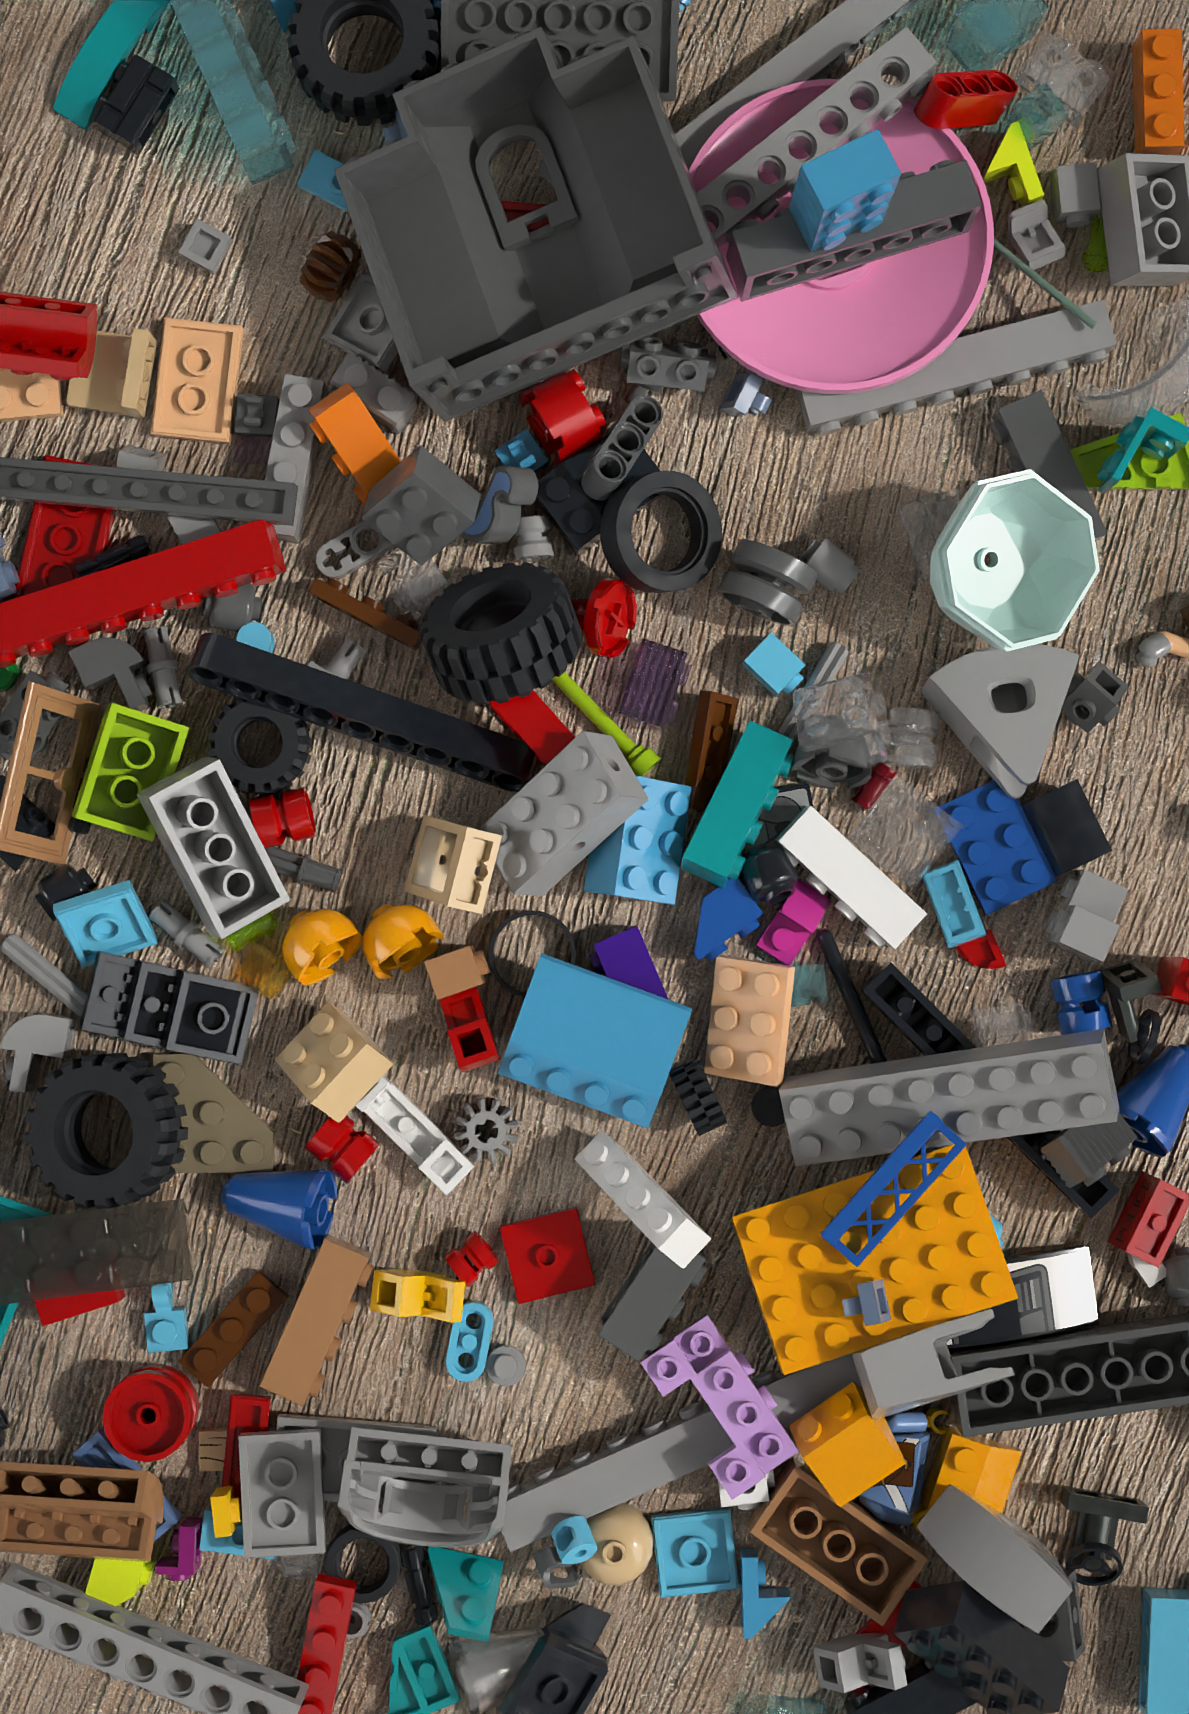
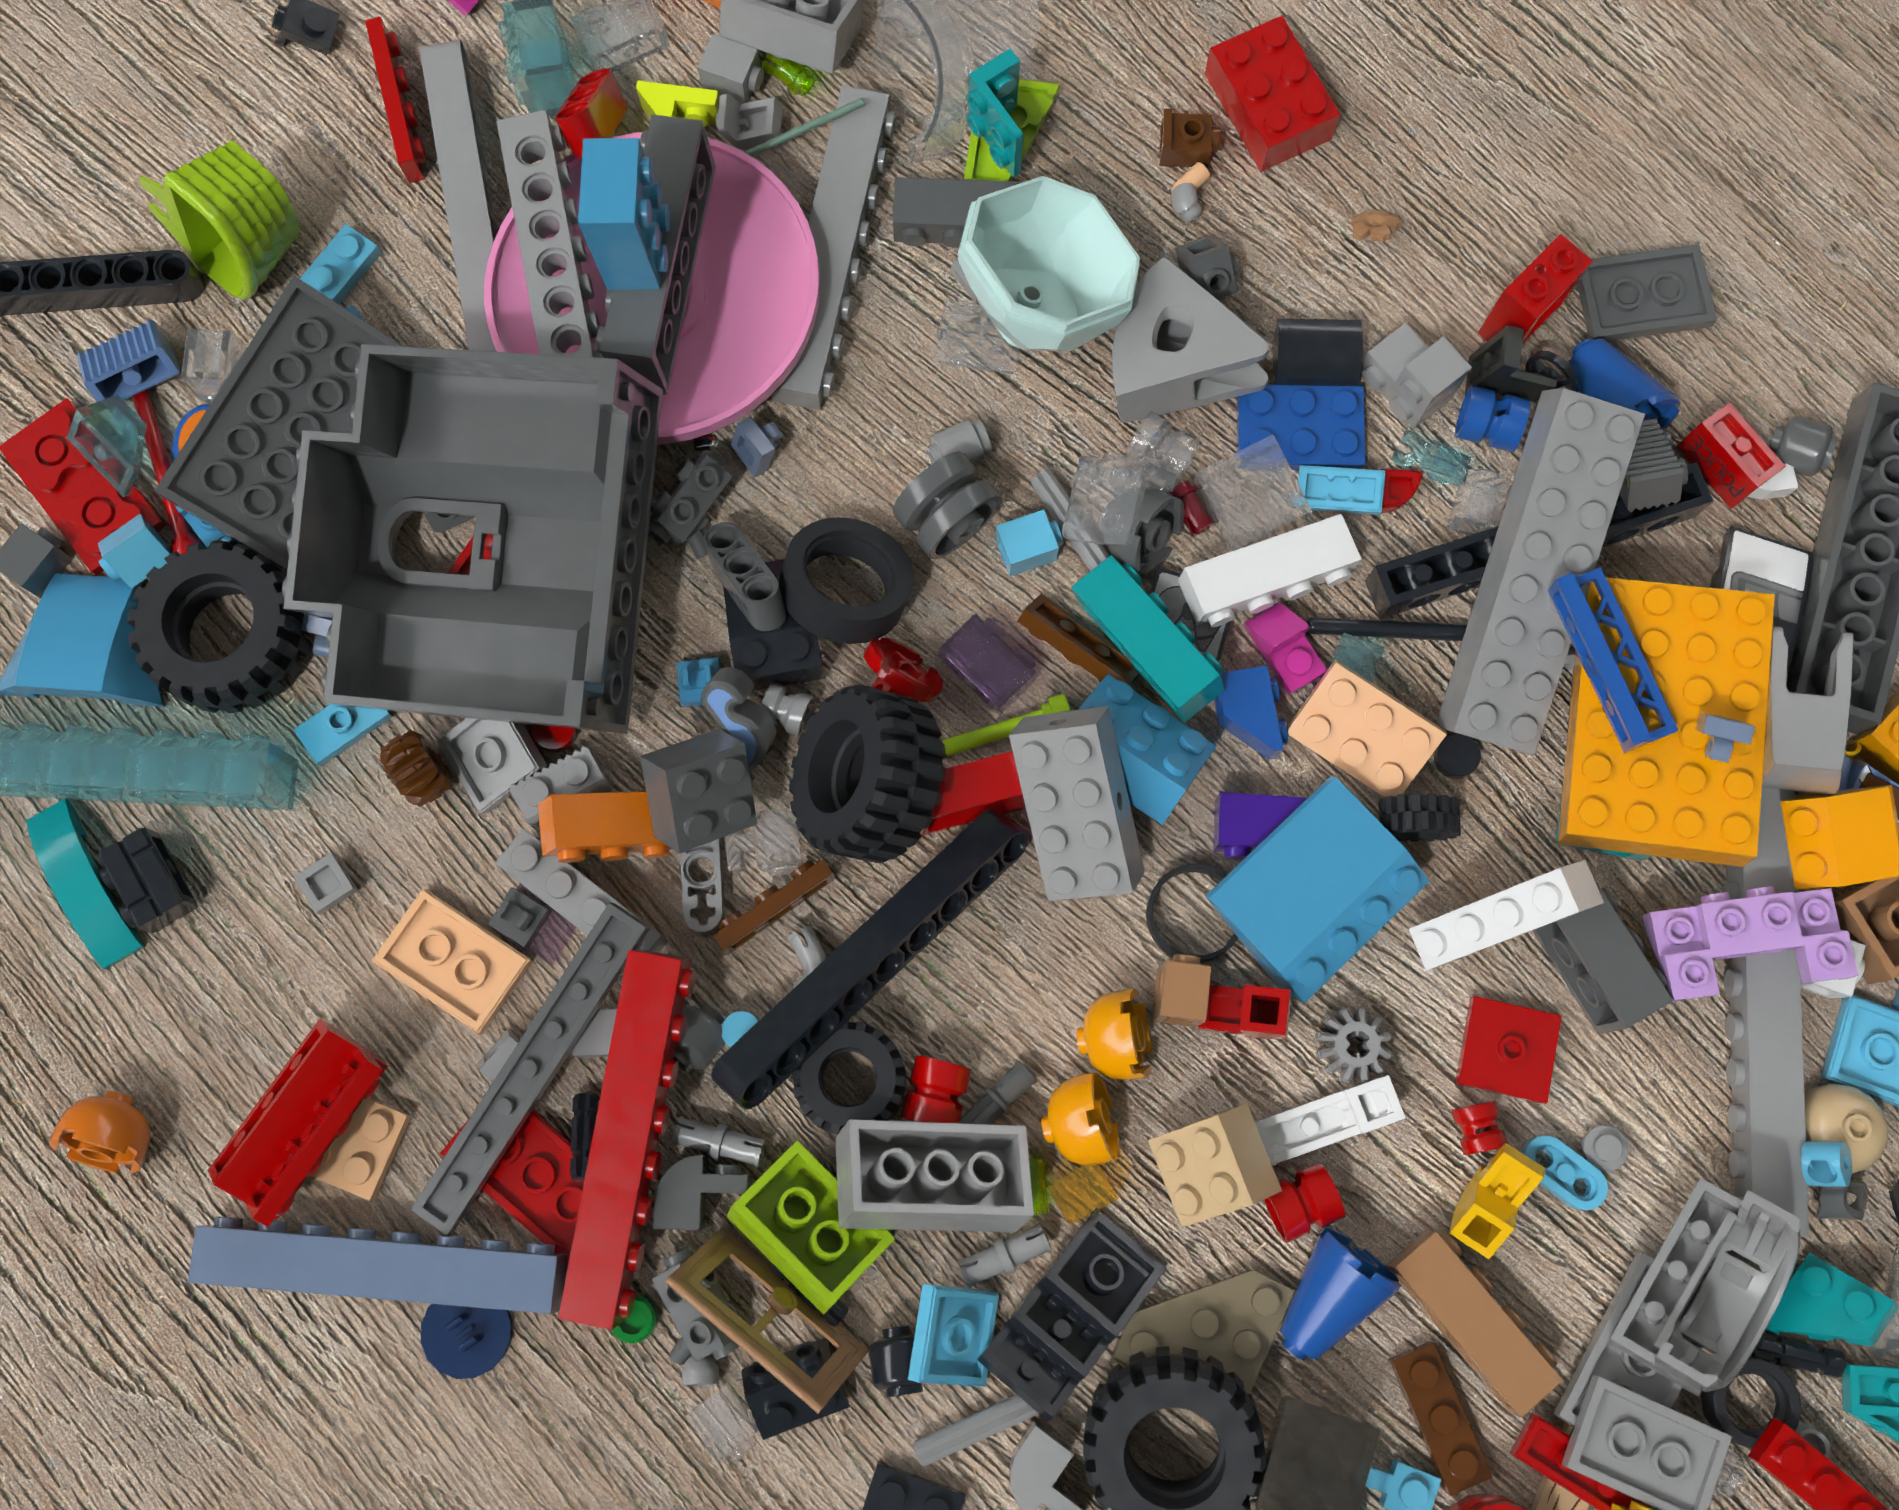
camera: 60 degrees left, 10 degrees down
(118, 375) = (402, 1036): tan bracket -> none
(454, 879) = (1071, 908): tan window -> none
(562, 415) = (683, 617): red brick -> none
(769, 874) = (1232, 641): black head -> none
(1022, 974) = (1438, 460): none -> clear light blue plate
(1038, 115) = (640, 60): clear light blue brick -> none

